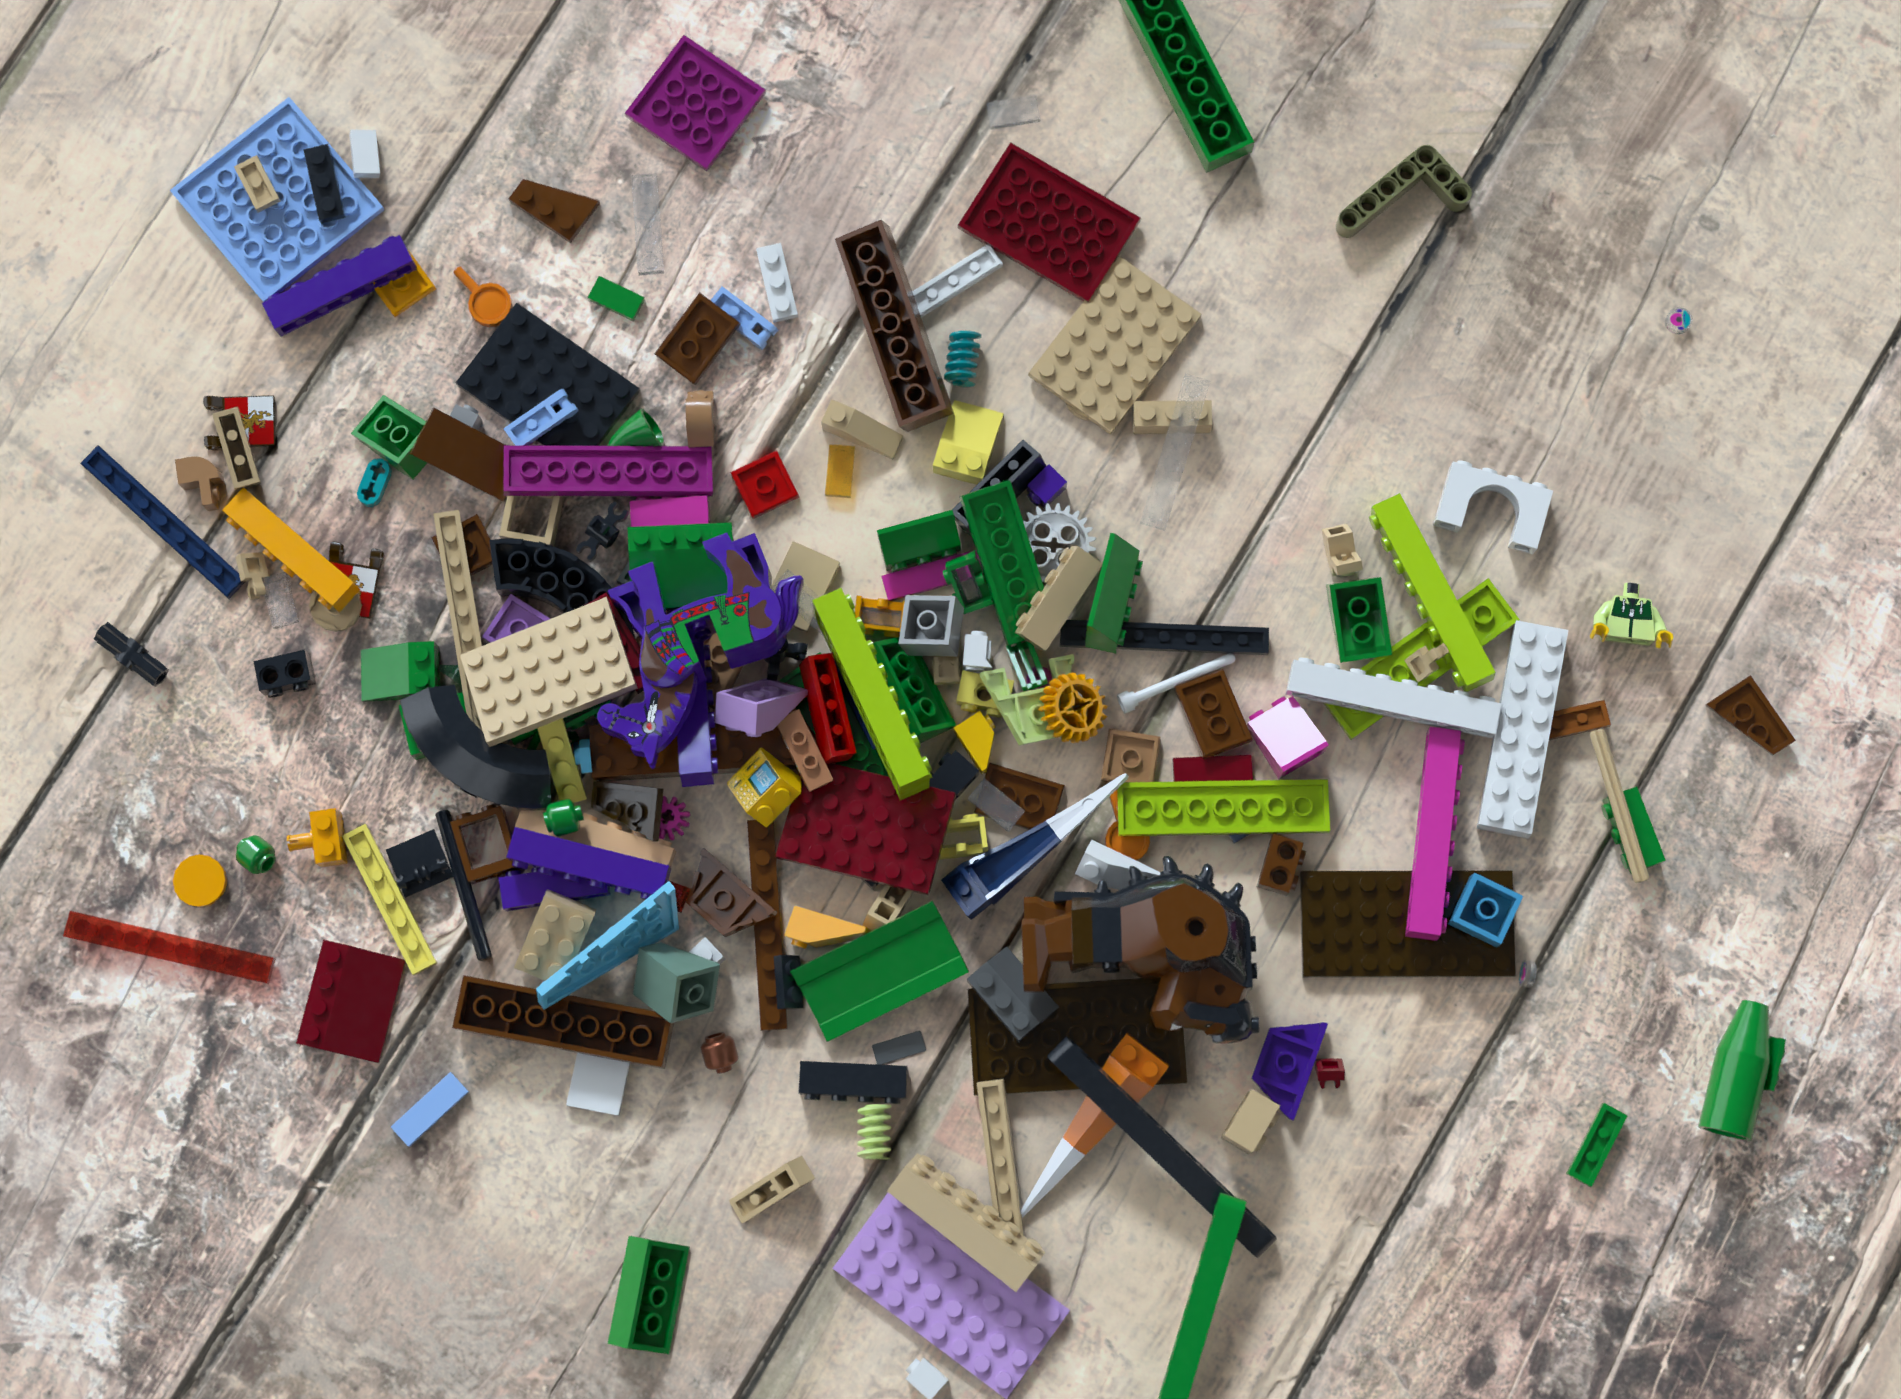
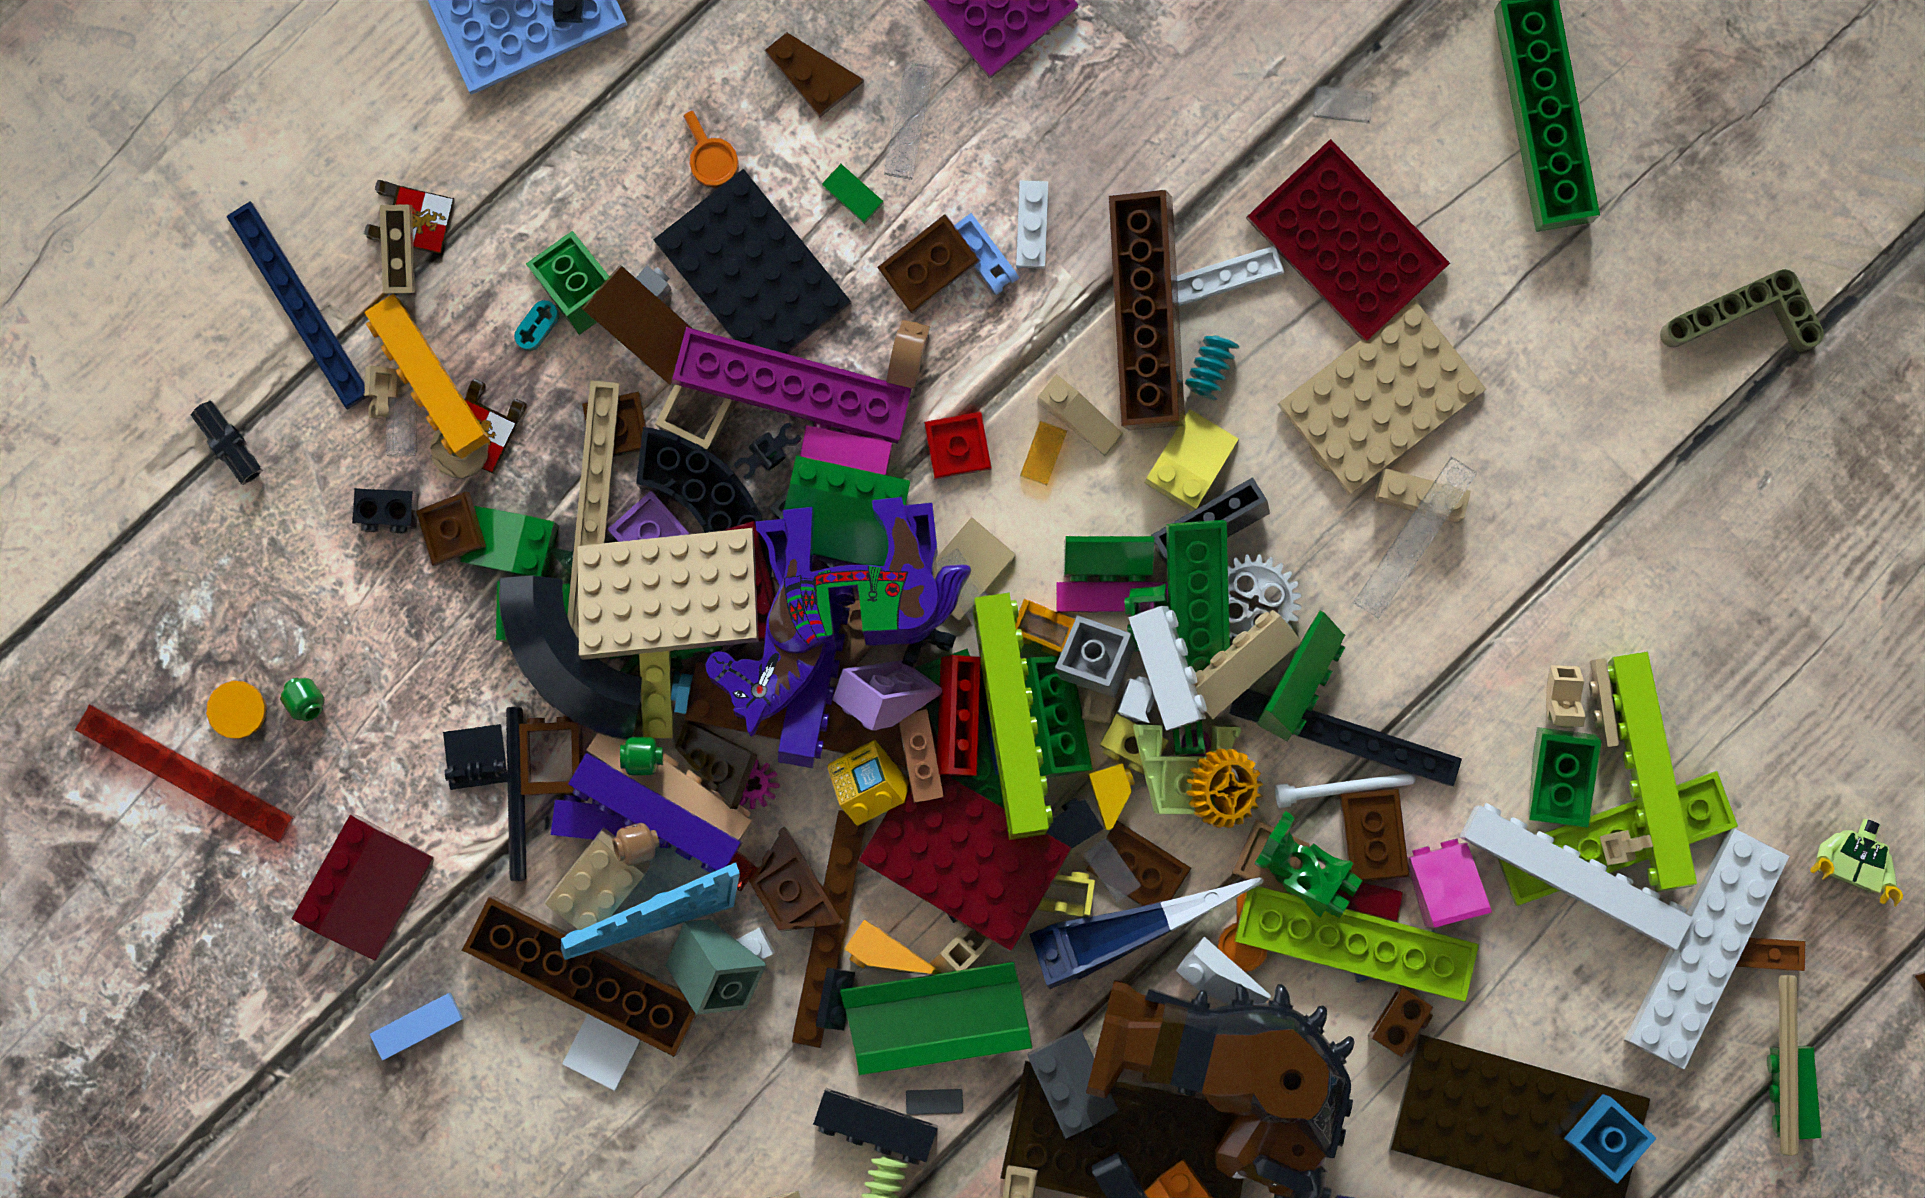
camera: 15 degrees right, 5 degrees up
(200, 473) = (350, 263): medium nougat brick -> none
(323, 838) = (381, 702): light orange brick -> none
(339, 285) = (556, 96): dark purple brick -> none
(346, 673) = (450, 528): none -> reddish brown tile
(389, 899) = (433, 788): light yellow plate -> none
(406, 290) = (623, 110): light orange tile -> none
(540, 419) = (734, 308): light blue plate -> none
(578, 890) = (635, 844): none -> medium nougat head
(638, 431) = (836, 350): green hat -> none
(719, 1052) = (740, 1054): copper head -> none
(994, 615) = (1167, 667): none -> white brick
(1046, 487) = (1262, 534): dark purple brick -> none
(1169, 766) = (1310, 883): none -> green hips
(1379, 558) = (1604, 715): none -> tan plate
(1433, 834) = (1577, 1037): dark pink brick -> none
(1528, 500) = (1785, 699): white arch -> none

